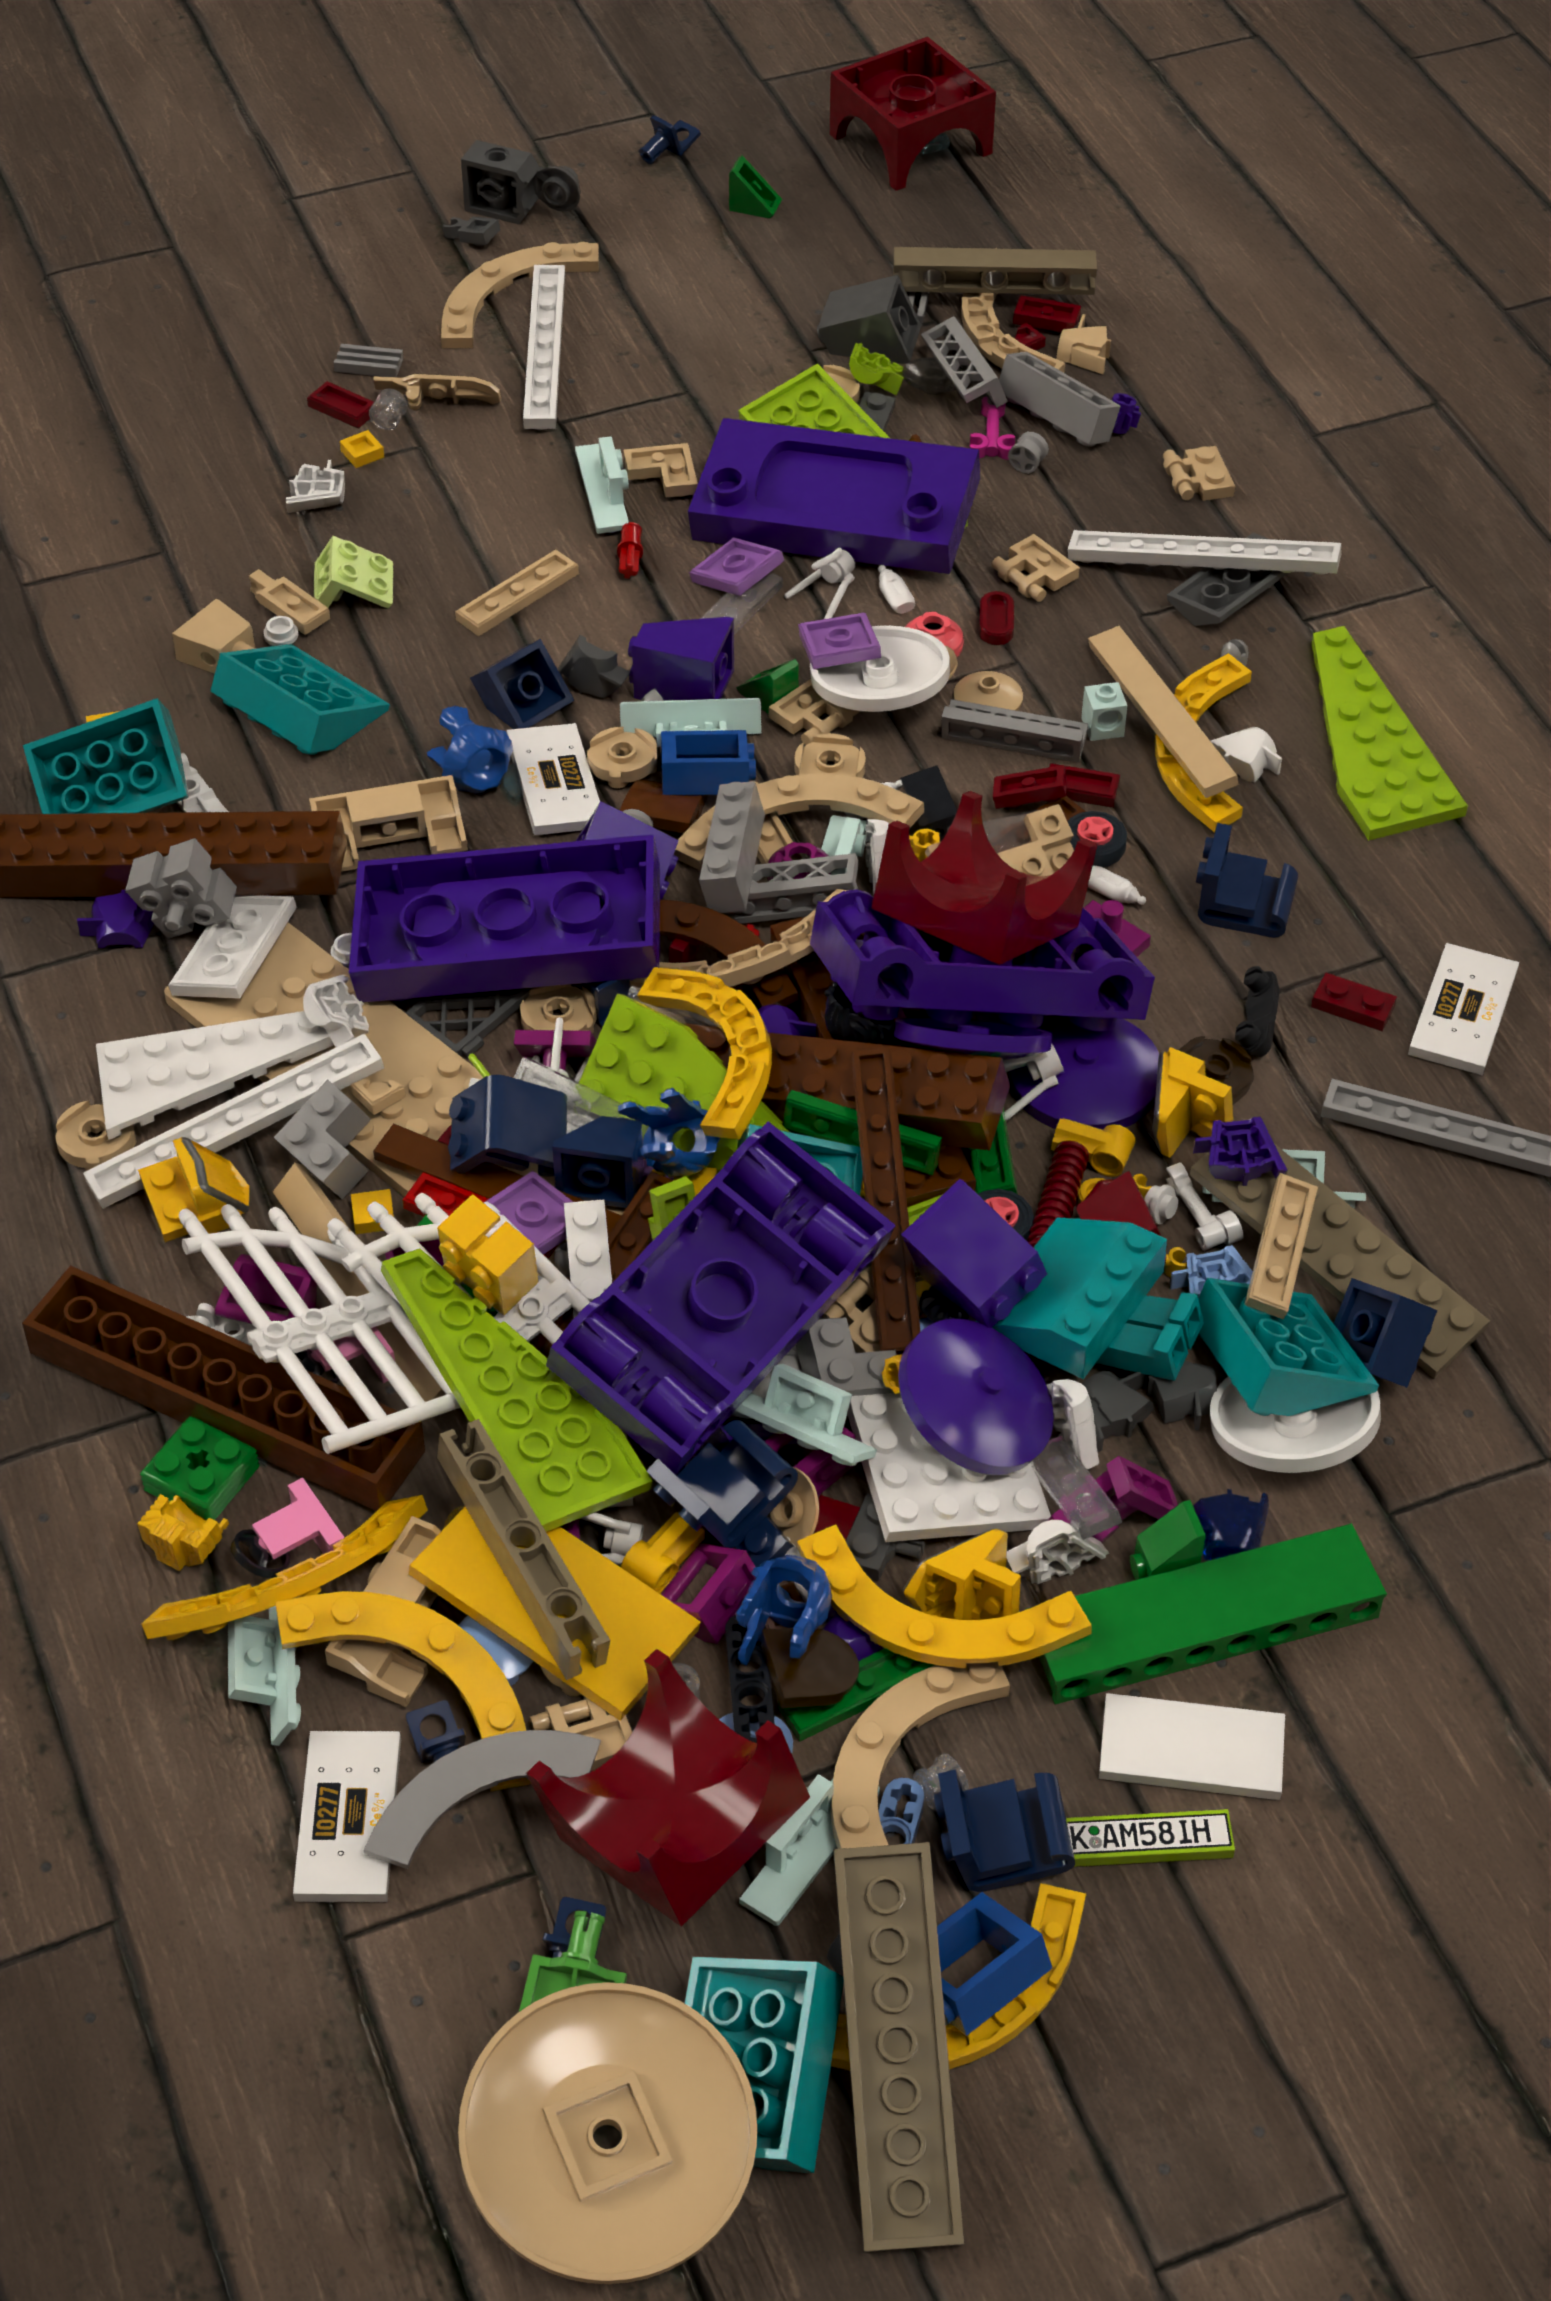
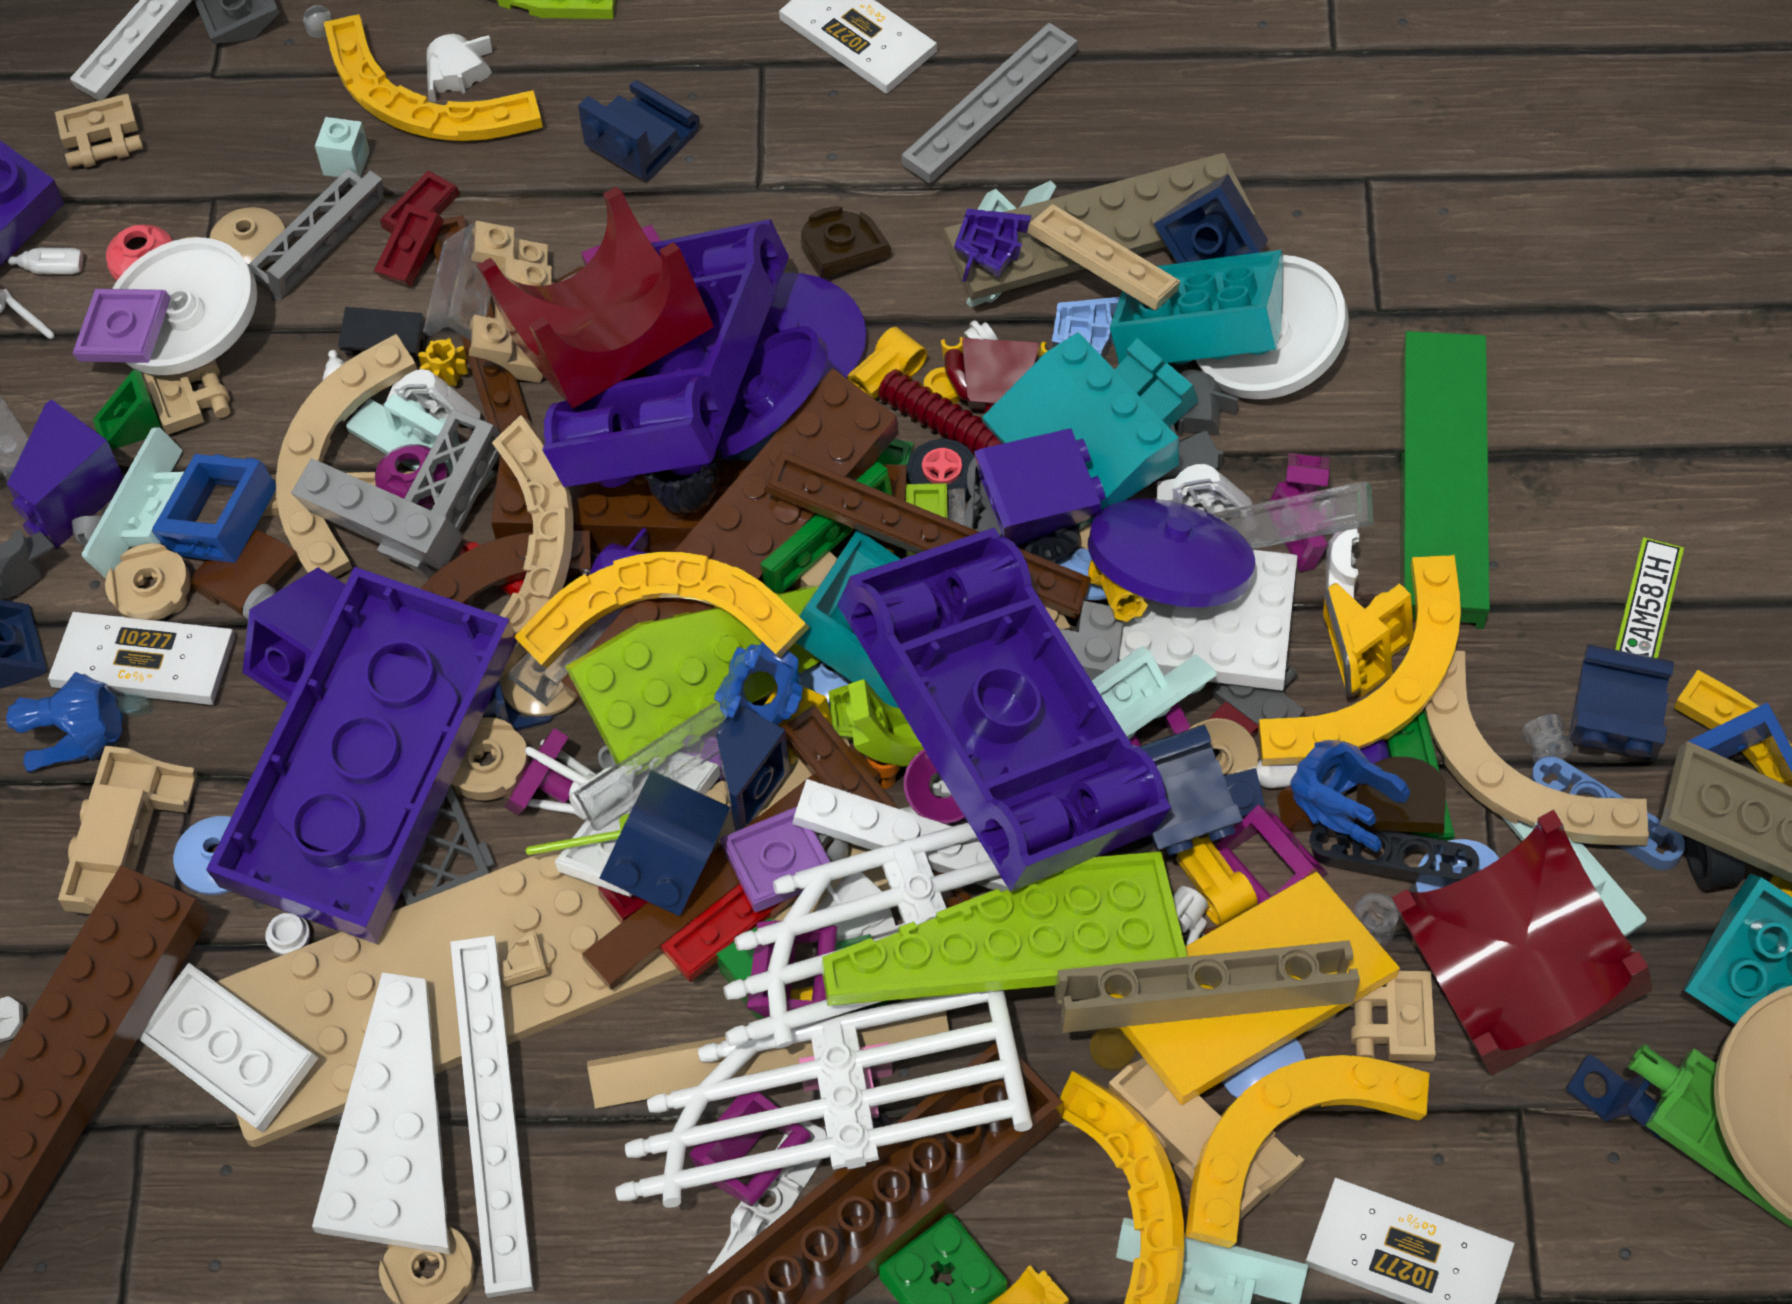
camera: 65 degrees left, 10 degrees up
(117, 921) = (109, 1161): dark purple piece -> none
(181, 888) = (132, 1070): light grey brick -> none
(193, 1181) = (572, 1185): yellow piece -> none
(286, 1530) = (1068, 1209): bright pink piece -> none
(320, 1135) = (567, 1040): light grey brick -> none
(334, 1009) = (402, 962): white piece -> none
(360, 1201) = (667, 1017): yellow tile -> none
(439, 1746) = (1366, 1144): dark blue bracket -> none
(468, 1773) = (1422, 1127): light grey tile -> none
(494, 1267) = (858, 904): yellow piece -> none
(830, 747) = (254, 388): tan plate -> none
(996, 618) = (145, 190): dark red tile -> none
(1103, 830) = (507, 207): black wheel -> none
(1114, 886) = (568, 231): white piece -> none
(1163, 712) = (375, 100): tan tile -> none
(1169, 1543) = (1382, 467): green slope -> none
(1186, 1100) = (884, 269): yellow piece -> none
(1192, 1746) = (1567, 541): white tile -> none
(1213, 1229) = (1028, 310): white brick -> none
(1231, 1523) = (1354, 428): clear blue piece -> none
(1261, 1010) = (790, 178): black piece -> none
(1354, 1001) = (808, 106): dark red plate -> none

